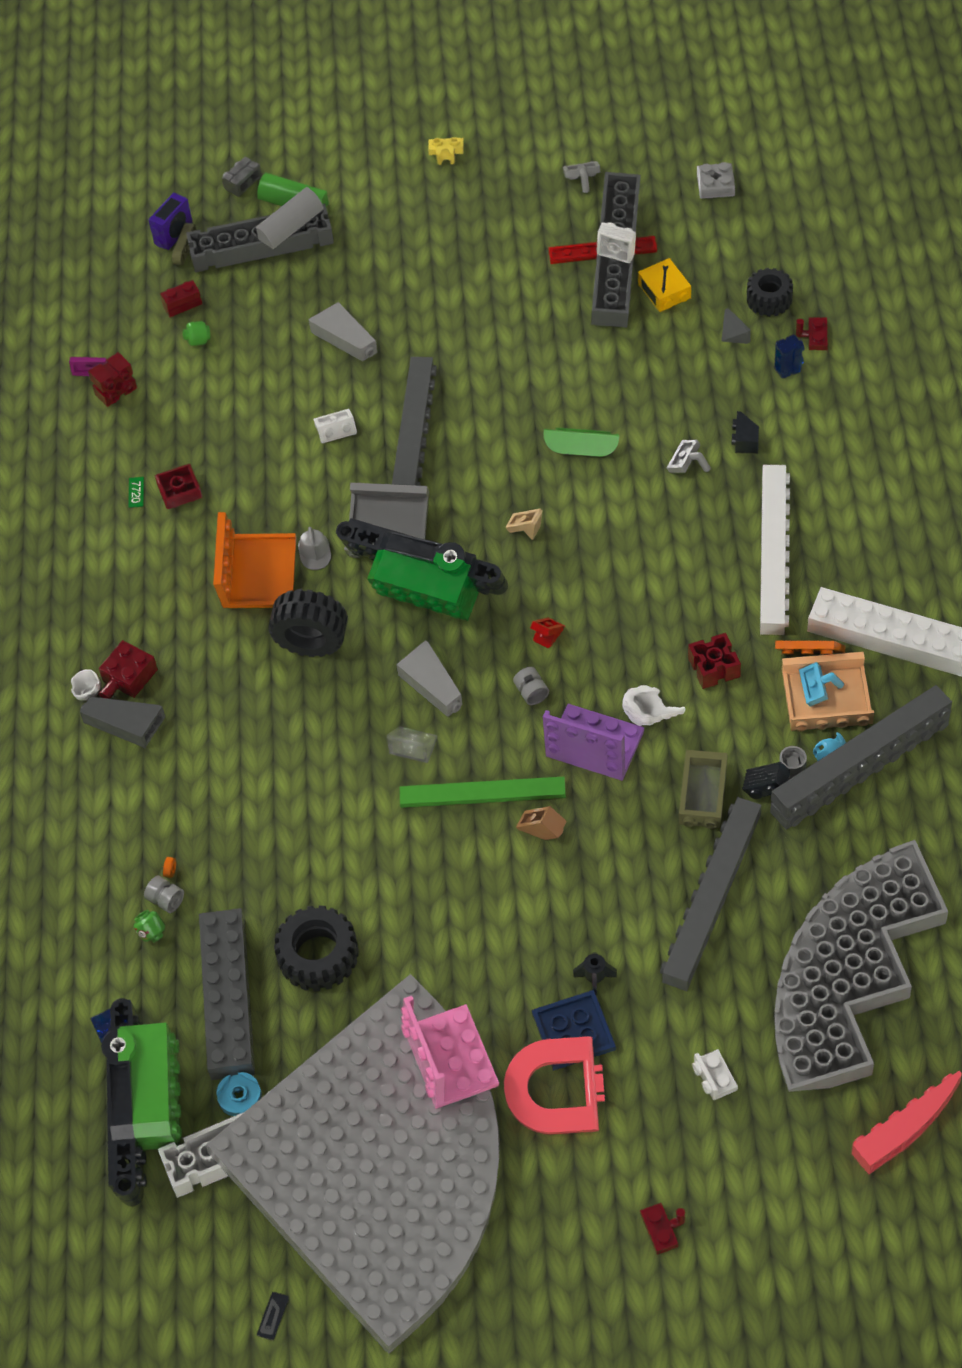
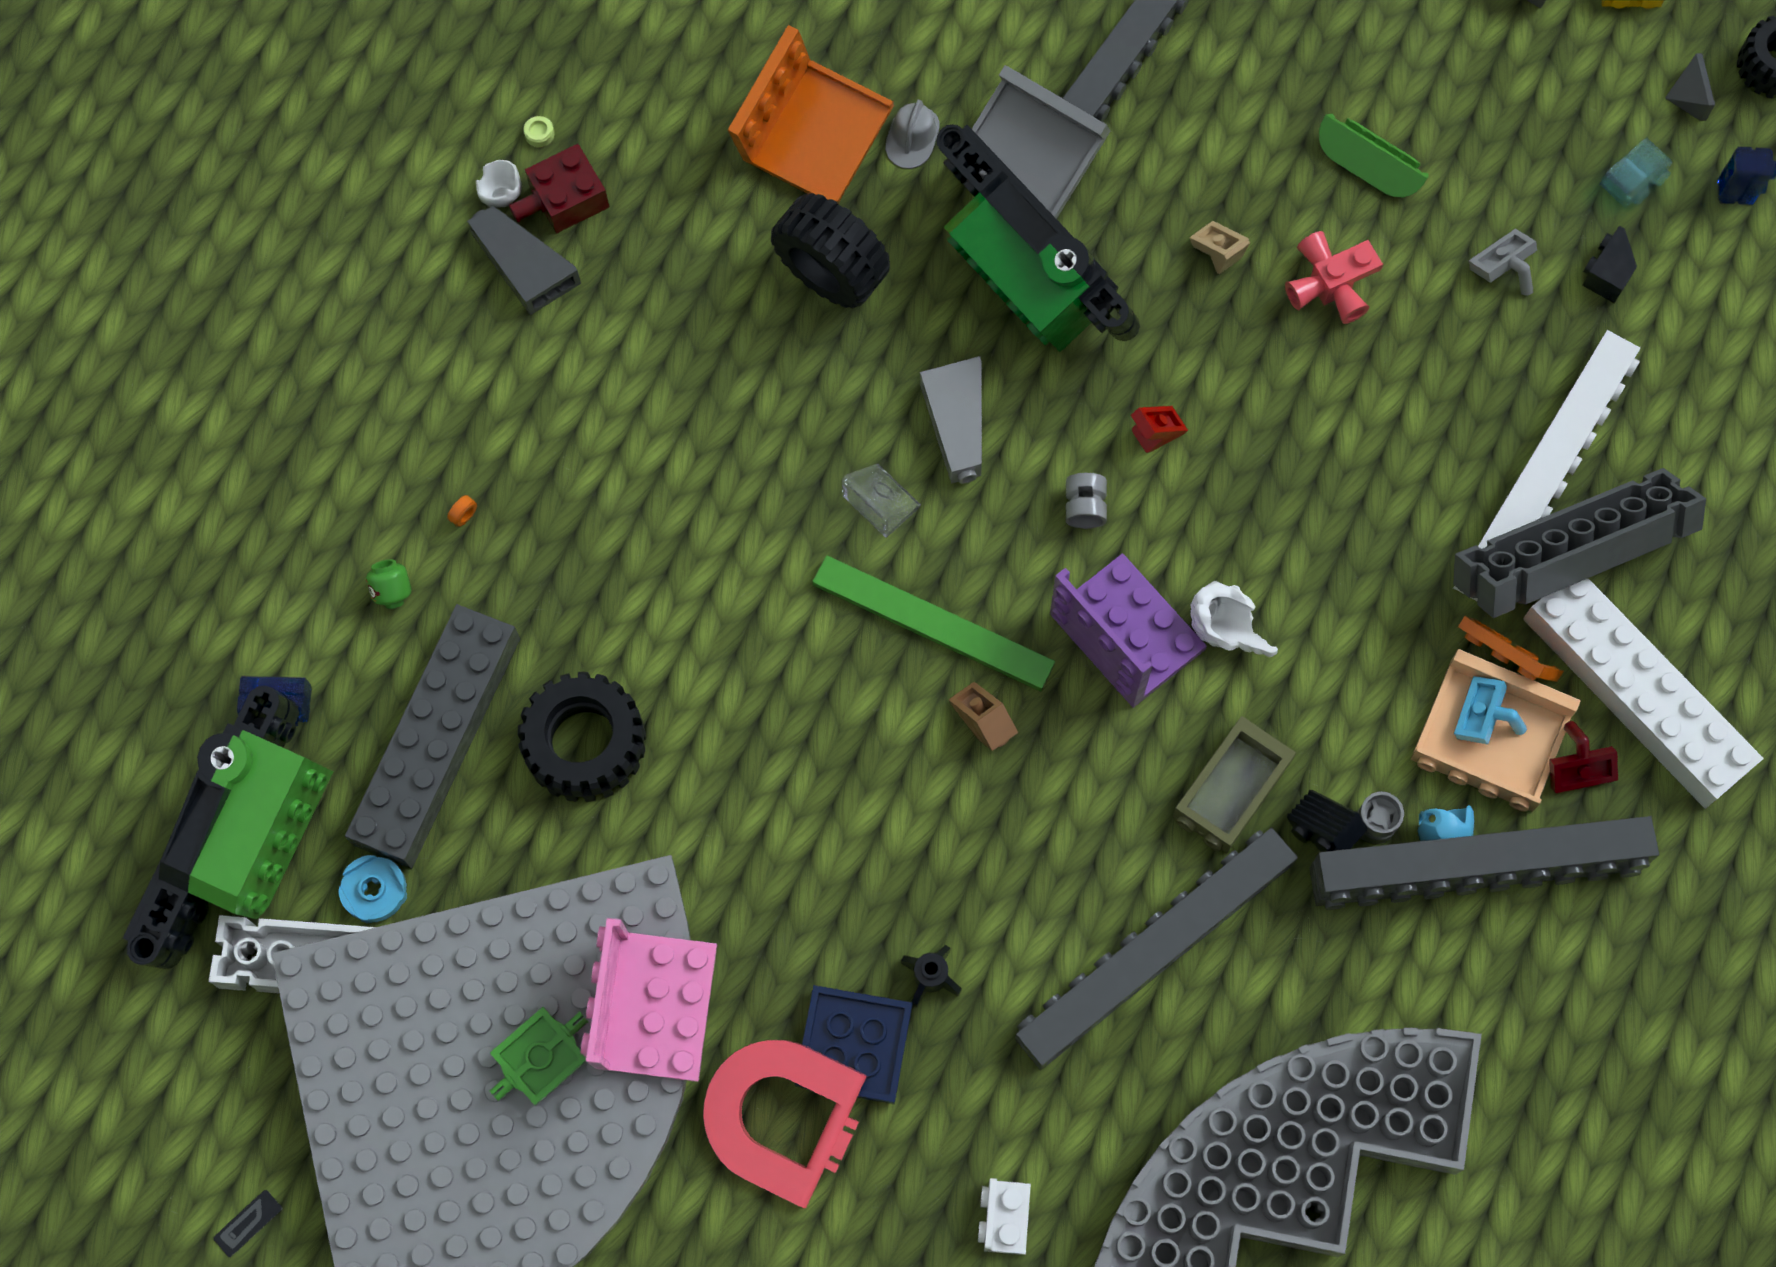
camera: 25 degrees right, 15 degrees up
(91, 649) = (539, 131): none -> yellowish green tile
(162, 893) = (432, 546): light grey wheel -> none
(399, 1115) = (539, 1056): none -> bright green plate
(598, 508) = (1334, 276): none -> coral brick
(714, 660) = (1375, 588): dark red brick -> none
(729, 383) = (1636, 173): none -> clear light blue brick
(813, 572) = (1578, 542): none -> dark grey brick
(885, 686) = (1585, 767): none -> dark red plate

